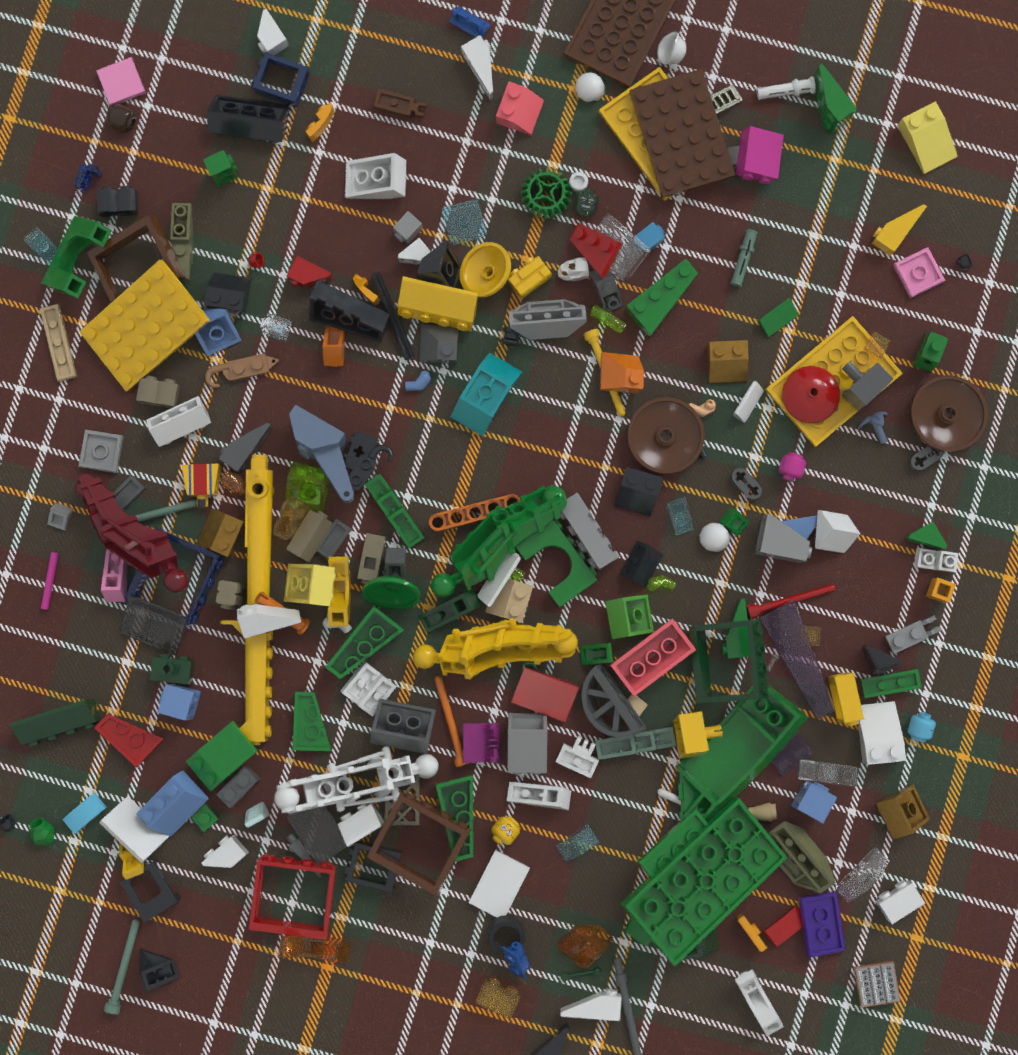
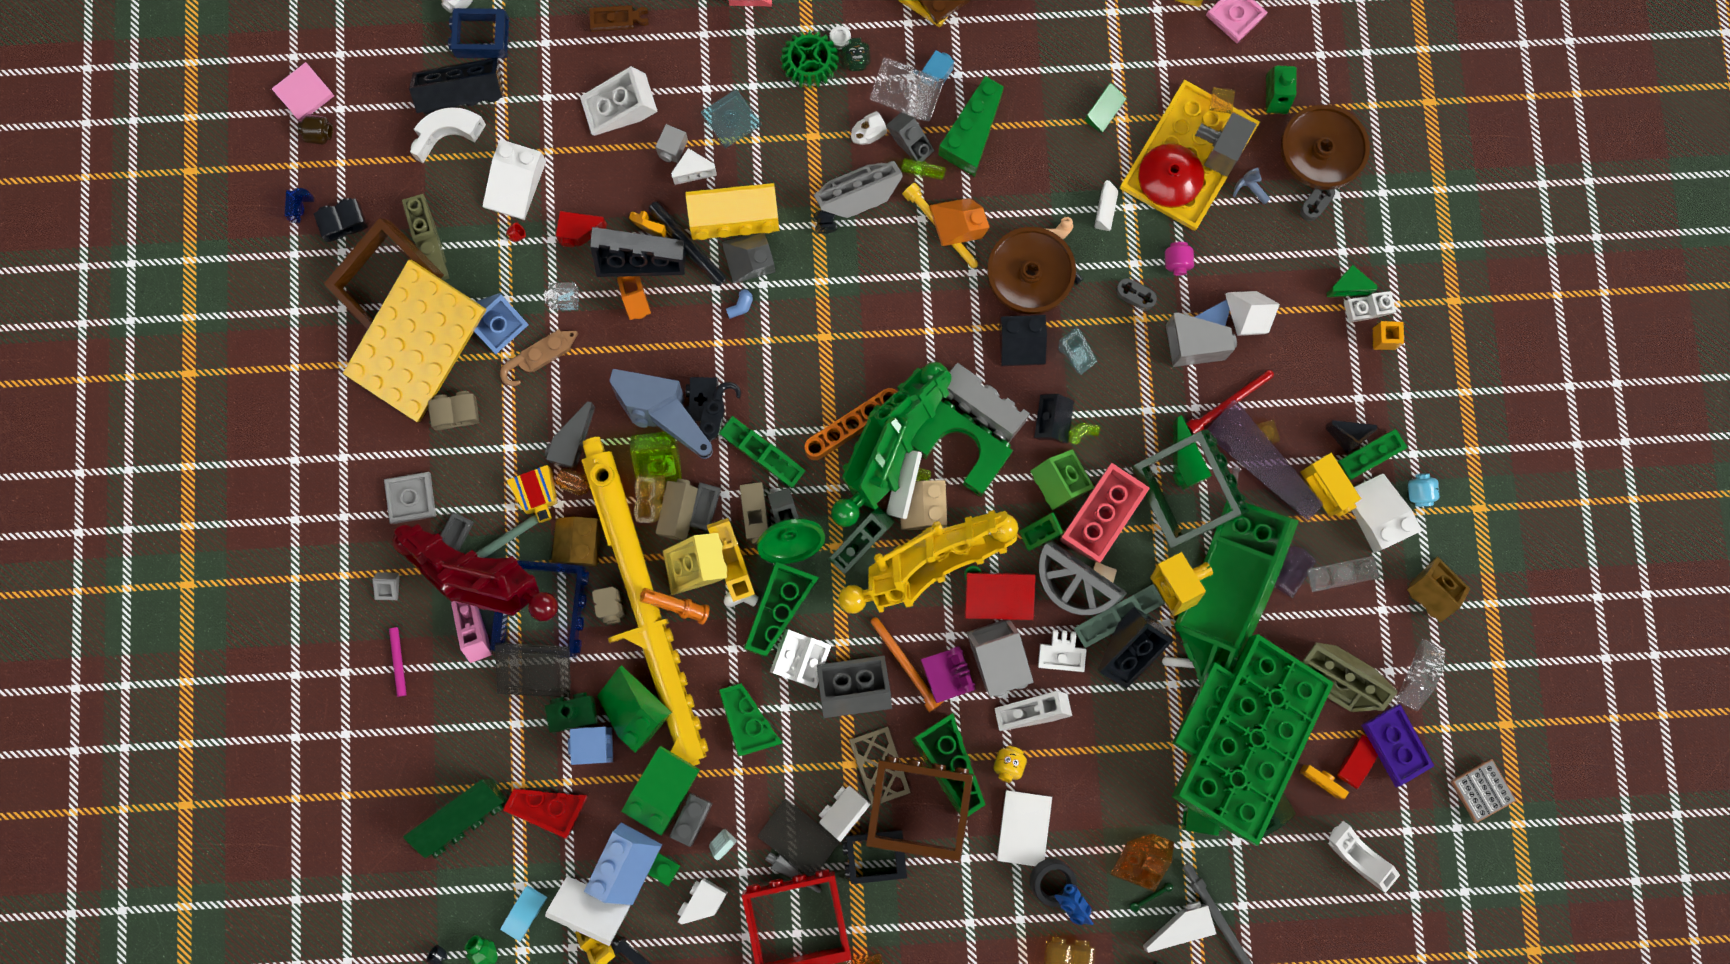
camera: 25 degrees left, 5 degrees down
(41, 245) = (272, 294): clear light blue slope -> none
(58, 342) = (323, 394): tan tile -> none
(78, 236) = (310, 266): green arch -> none
(178, 421) = (487, 434): white brick -> none
(220, 683) = (632, 709): none -> green slope
(221, 168) = (444, 144): green brick -> none
(228, 293) = (496, 276): black slope -> none
(236, 147) = (443, 123): none -> white arch
(262, 618) = (656, 617): white slope -> none
(268, 214) = (513, 179): none -> white slope
(288, 797) = (752, 809): white piece -> none
(324, 116) = (540, 58): light orange slope -> none
(440, 267) = (721, 169): black slope -> none
(479, 265) = (765, 154): yellow dish -> none
(485, 393) = (818, 292): teal slope -> none
(529, 277) = (822, 153): yellow brick -> none
(578, 843) = (1096, 749): clear light blue slope -> none
(596, 248) = (884, 95): red wing -> none
(637, 773) = (1133, 647): none -> black slope
(714, 537) = (1123, 362): white hair -> none
(727, 361) = (1068, 170): pearl gold slope -> none
(734, 521) = (1137, 339): green slope -> none
(746, 250) = (1045, 49): sand green pin -> none
(764, 812) = (1290, 641): tan cone -> none
(814, 800) = (1339, 610): medium blue piece -> none
(899, 901) = (1473, 689): white brick -> none
(910, 635) = (1372, 396): light grey hinge -> none

